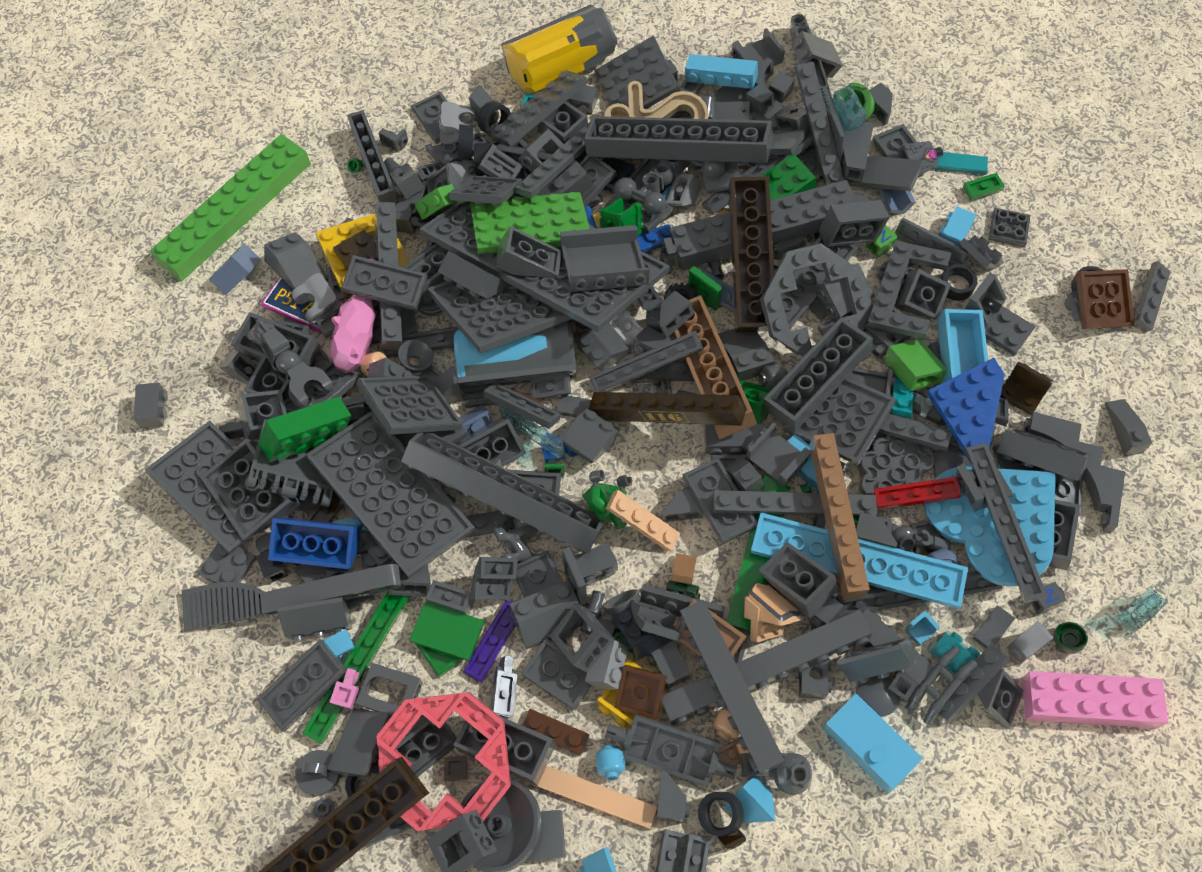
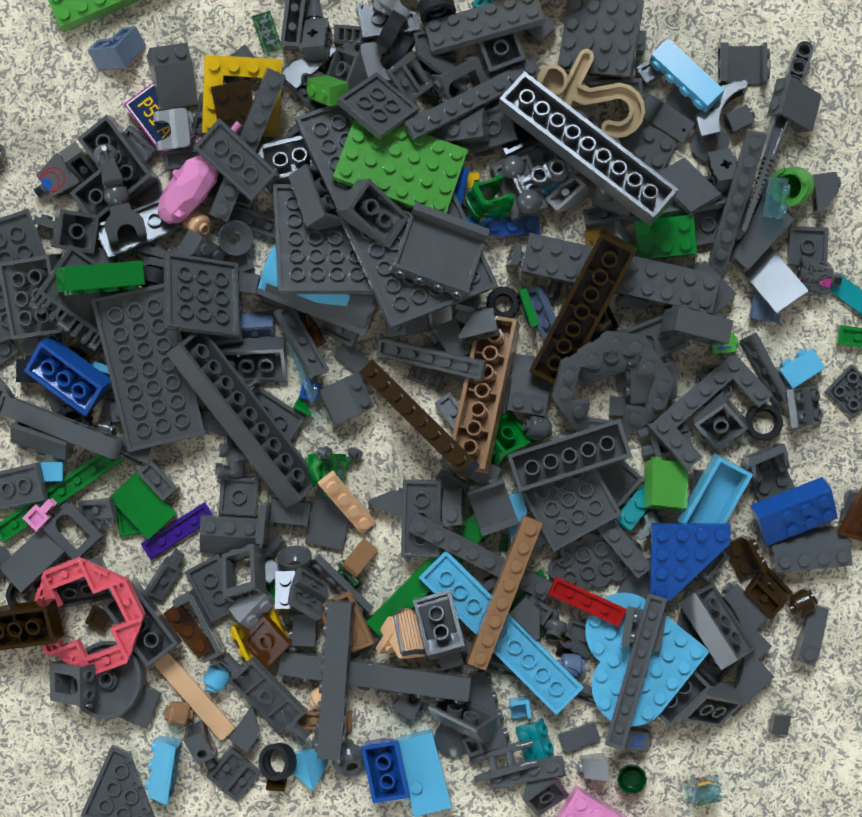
camera: 25 degrees right, 25 degrees up
(225, 390) = (56, 178): none -> dark grey torso
(360, 201) = (267, 32): none -> clear green tile
(405, 656) = (99, 511): none -> dark grey plate
(493, 578) = (199, 486): dark grey slope -> none
(540, 690) = (208, 627): none -> dark grey panel
(590, 823) = (178, 714): none -> medium nougat head
(624, 835) = (200, 744): none -> dark grey torso
(634, 555) = (327, 523): none -> dark grey tile
(835, 756) = (385, 770): none -> blue slope
(1036, 329) = (794, 511): none -> blue brick
(1064, 407) = (768, 592): none -> dark brown slope
(1073, 357) = (811, 550): none -> dark grey slope
(1096, 520) = (714, 706): none -> dark grey slope
(1099, 401) = (802, 602): none -> dark brown head
(1159, 516) = (779, 724): none -> dark grey slope

